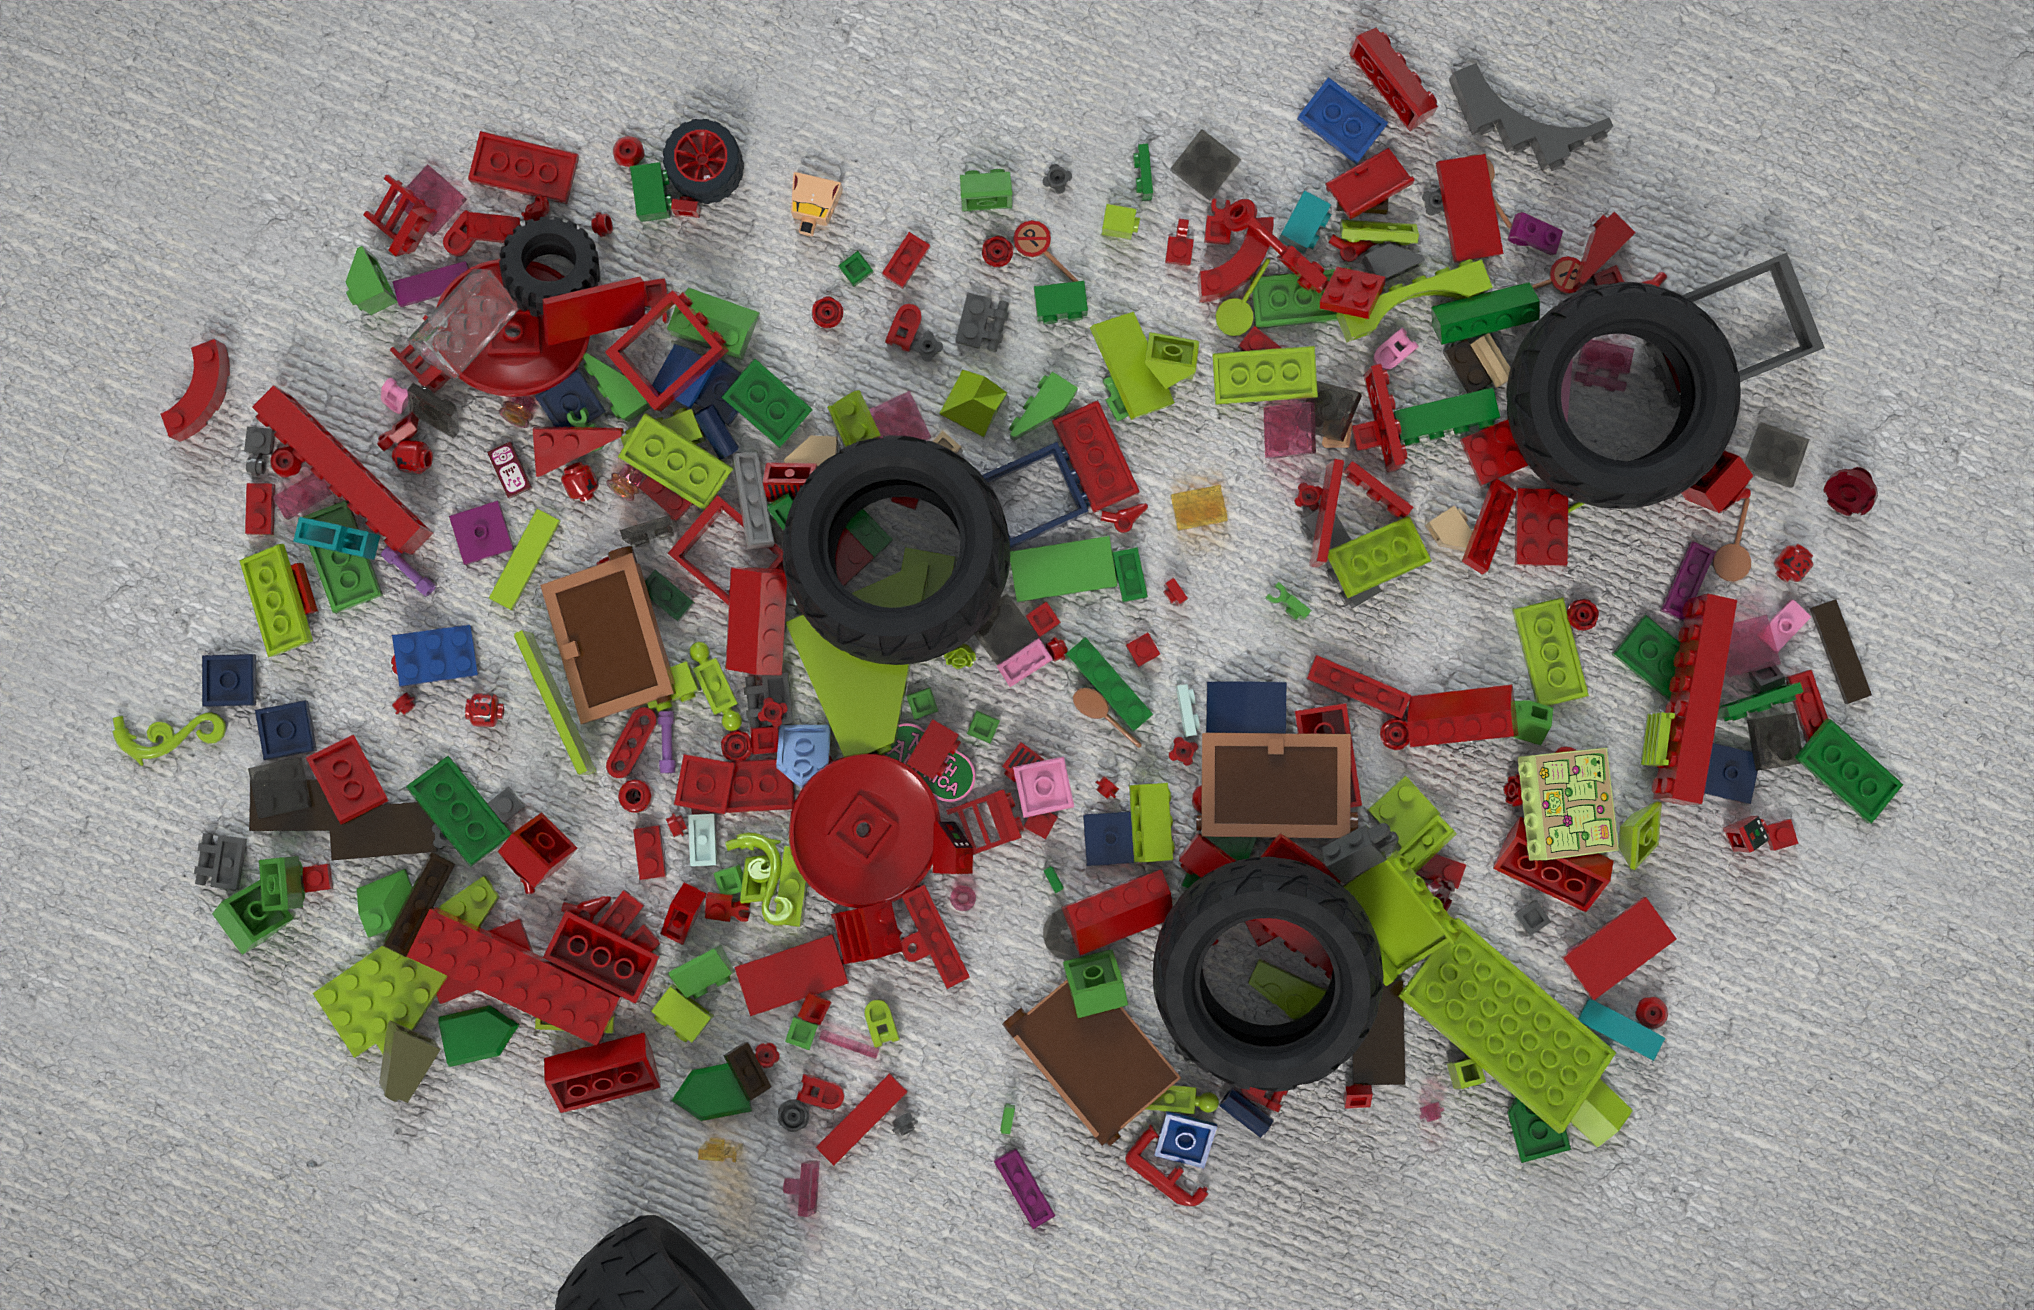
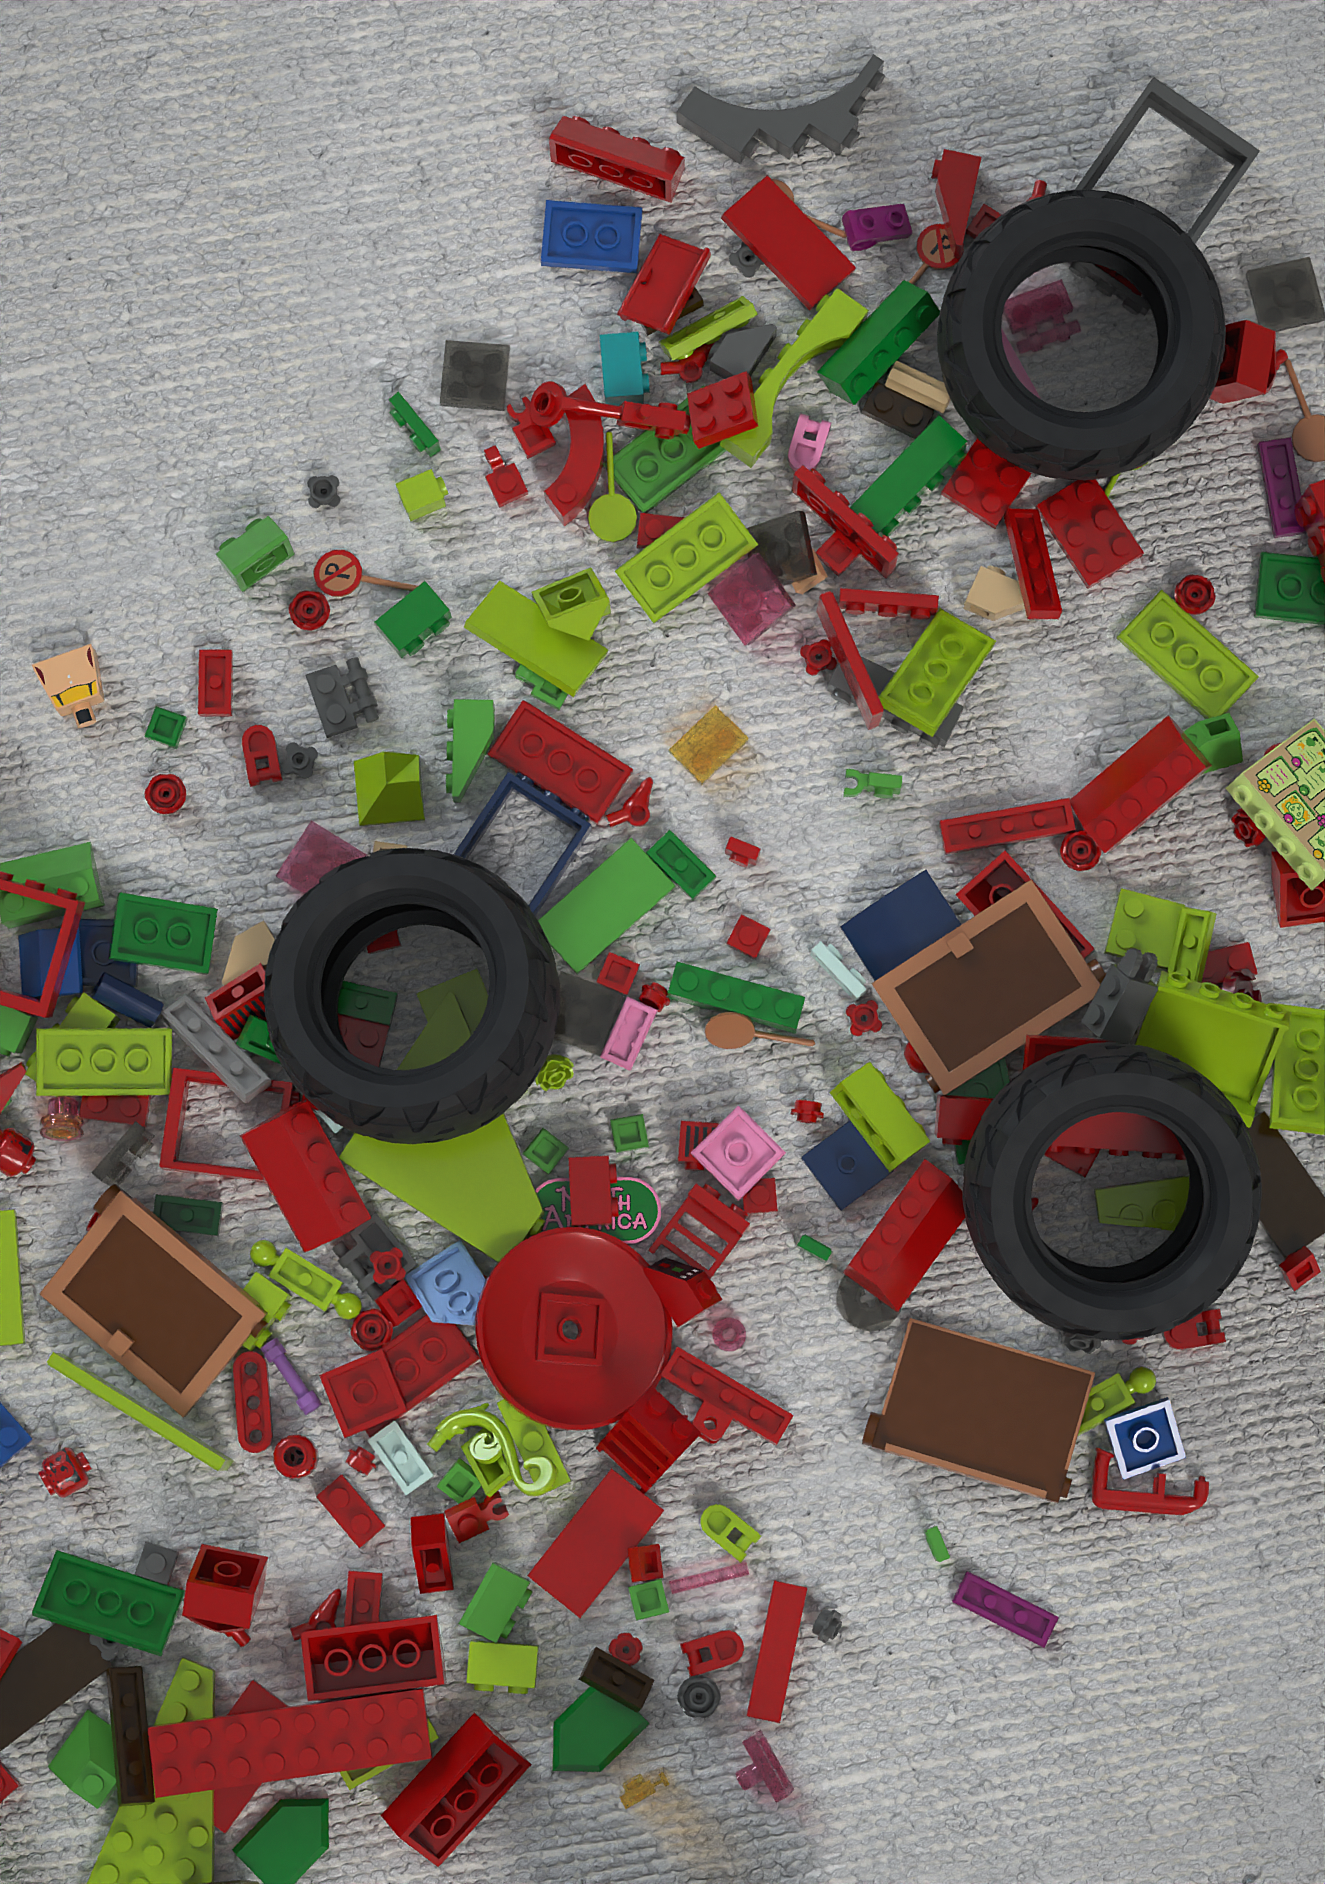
camera: 30 degrees left, 5 degrees down
(644, 938) = (406, 1607): red plate -> none
(853, 419) = (268, 890): lime plate -> none
(1095, 983) = (935, 1331): bright green slope -> none
(1246, 1112) = (1191, 1365): dark blue axle -> none

